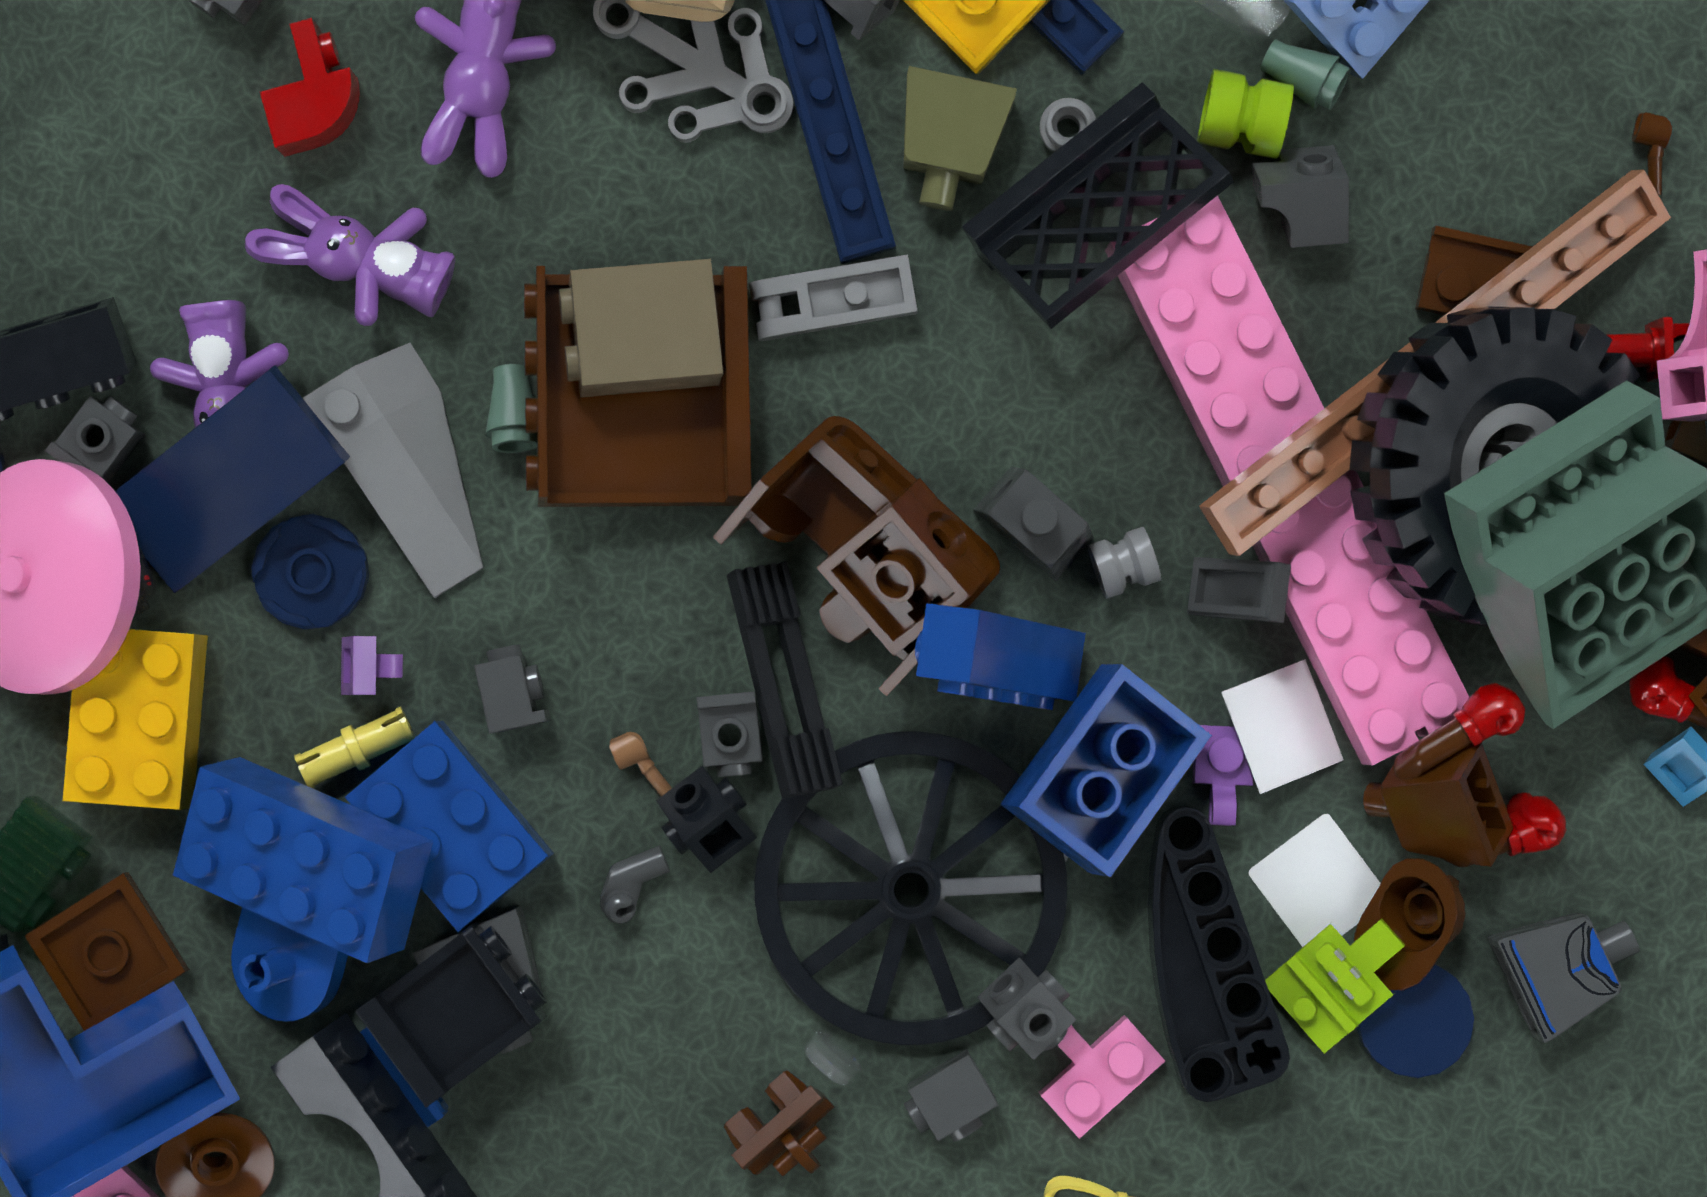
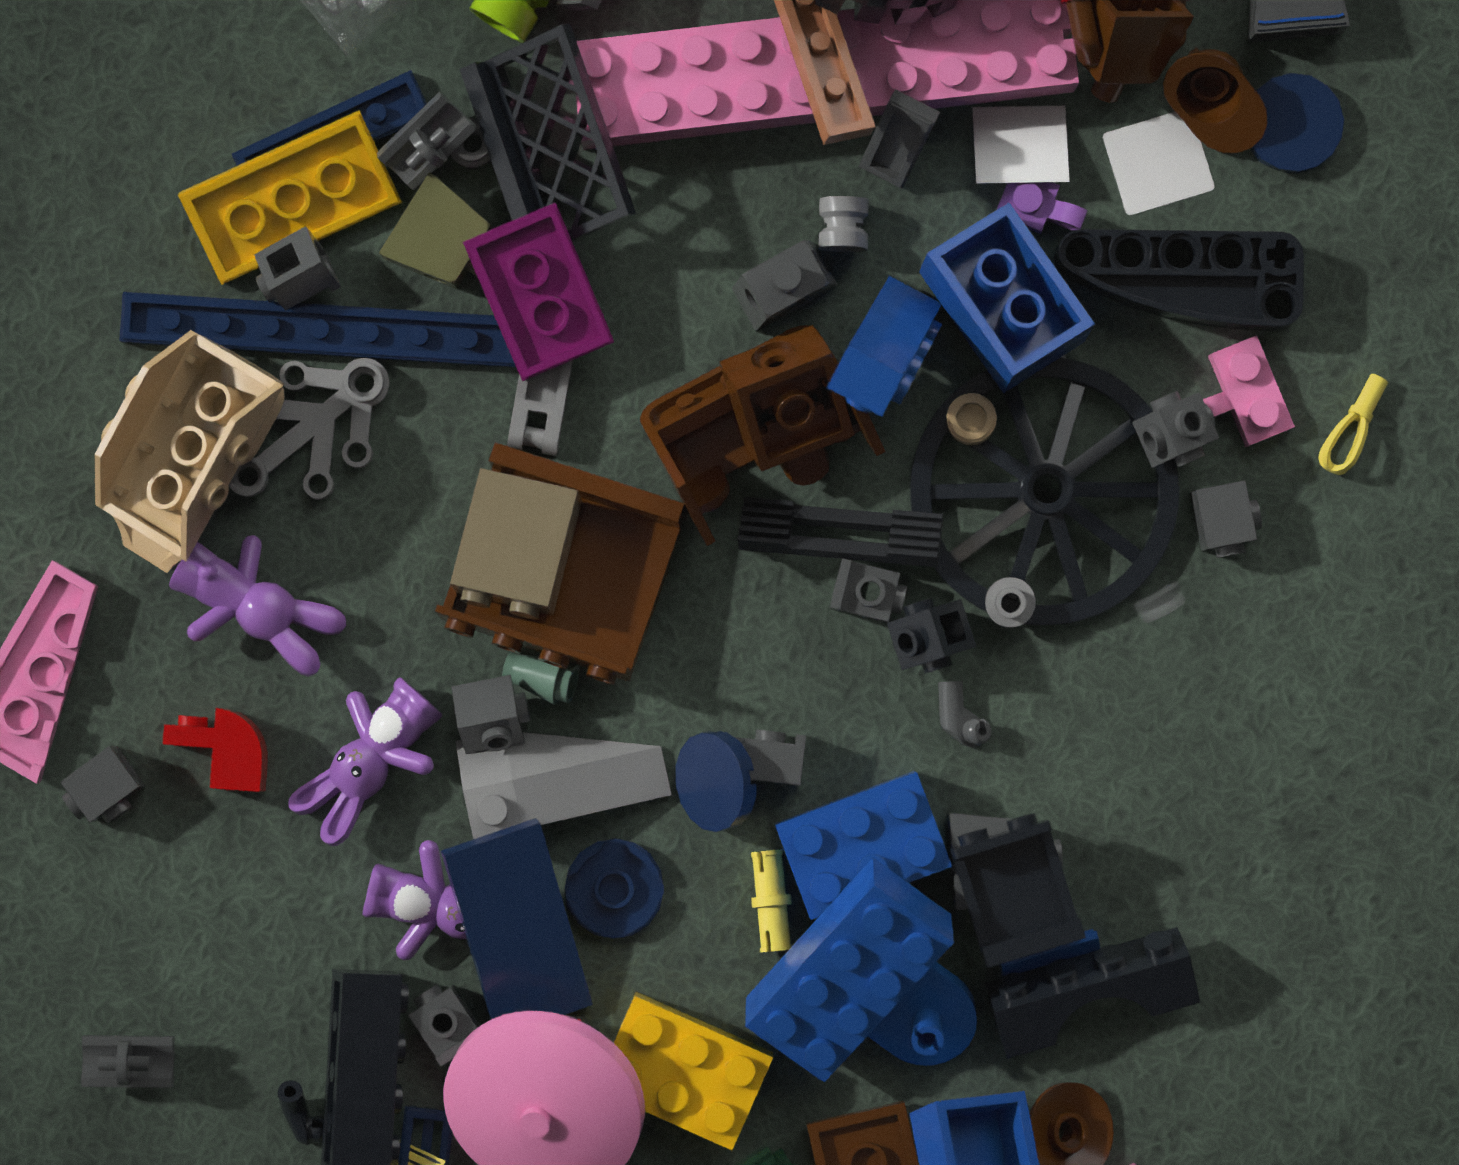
camera: 70 degrees left, 0 degrees up
(362, 665) = (707, 870): medium lavender tile -> none
(448, 367) = (490, 714): none -> dark grey brick
(462, 639) = (715, 781): none -> dark blue tile
(631, 749) = (852, 678): medium nougat hand -> none
(762, 1144) = (1192, 643): reddish brown hips -> none
(786, 880) = (1003, 587): none -> light grey plate
(928, 254) = (538, 291): none -> magenta tile
(959, 779) = (971, 419): none -> tan tile
(1051, 74) = (426, 140): none -> dark grey hips
(1334, 984) = (1243, 177): lime piece -> none

